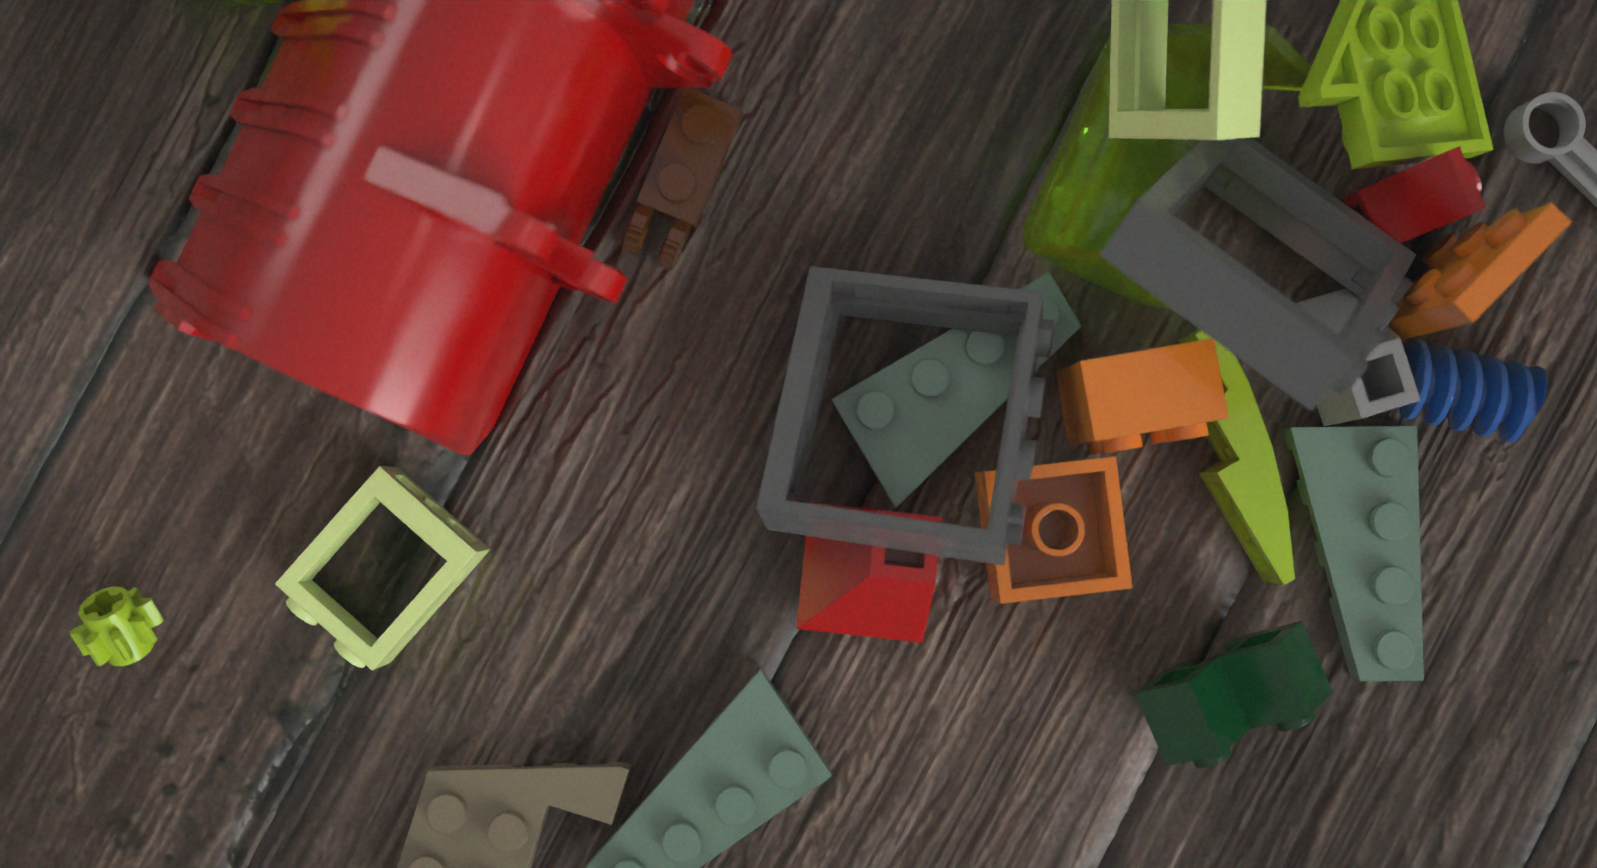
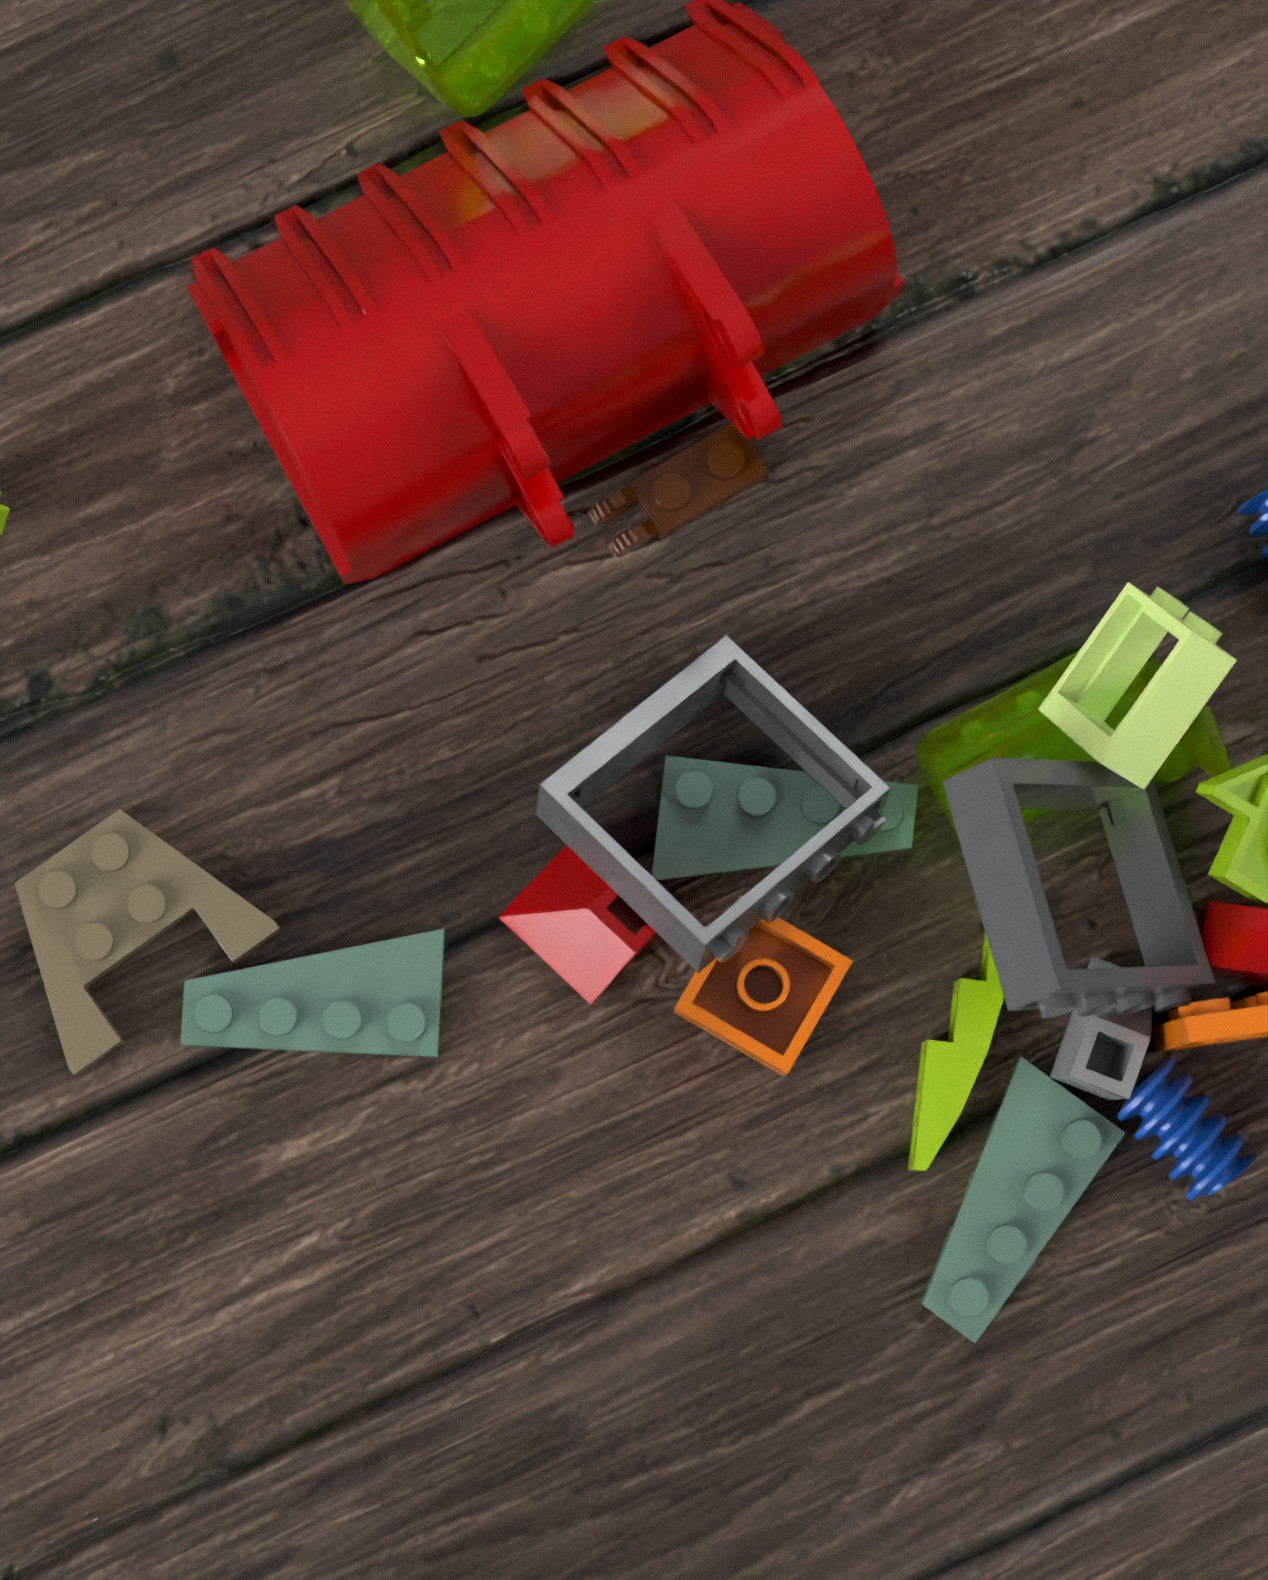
camera: 35 degrees right, 5 degrees down
(428, 521) = (272, 608): yellowish green window -> none
(1142, 391) = (910, 932): orange brick -> none
(1254, 684) = (810, 1231): dark green brick -> none

